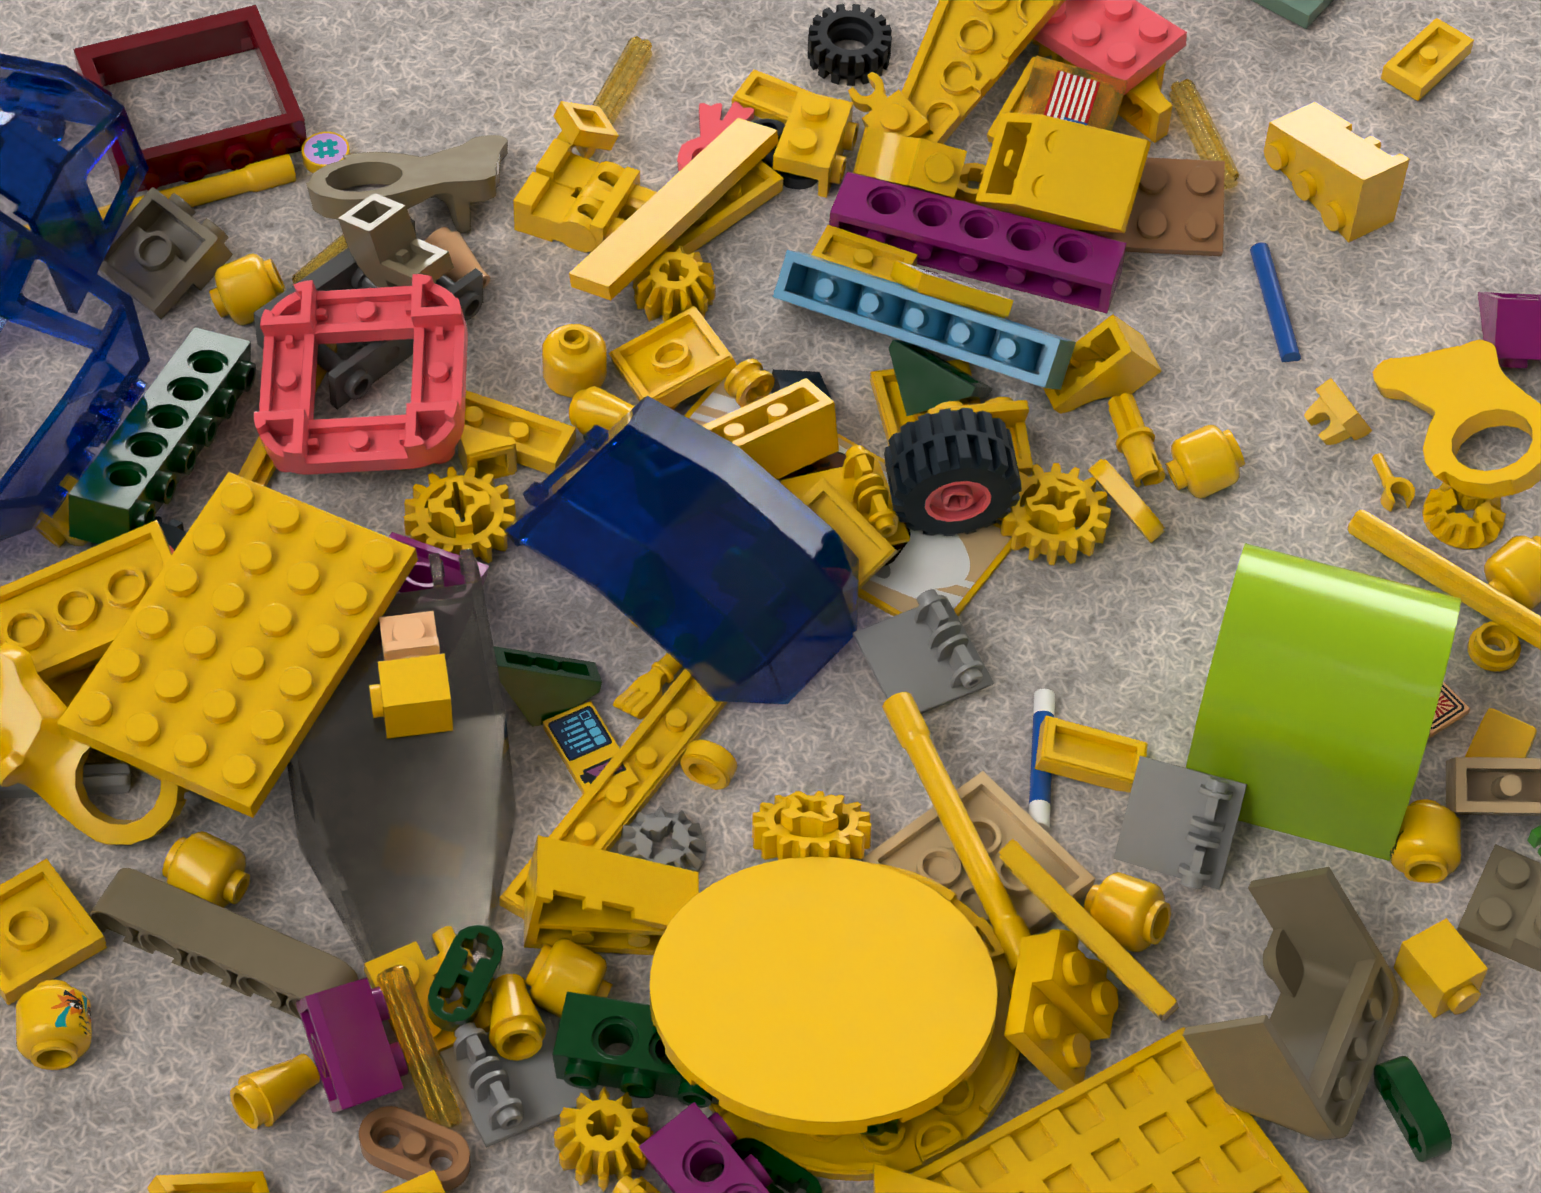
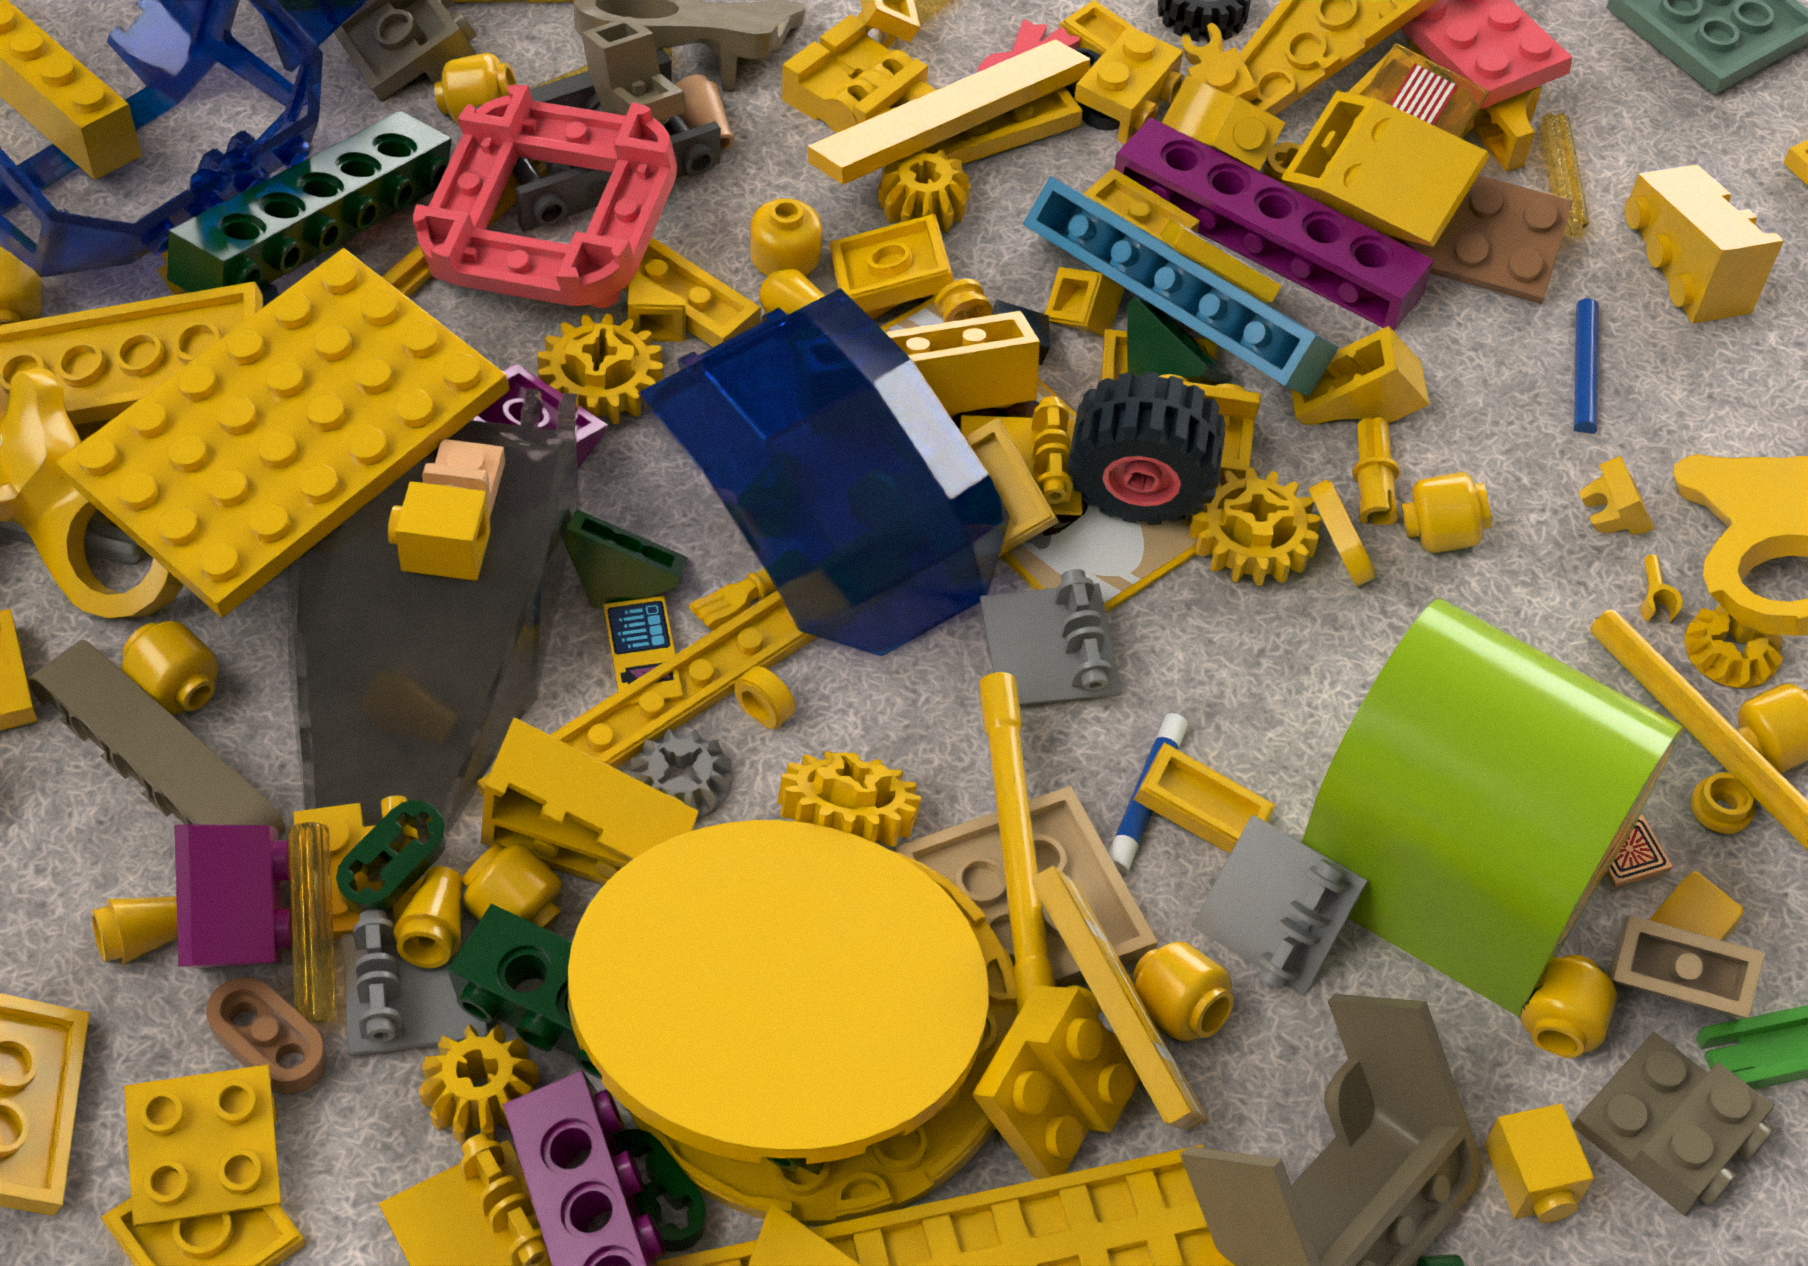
camera: 15 degrees right, 0 degrees up
(844, 351) = (1084, 300): none -> yellow slope

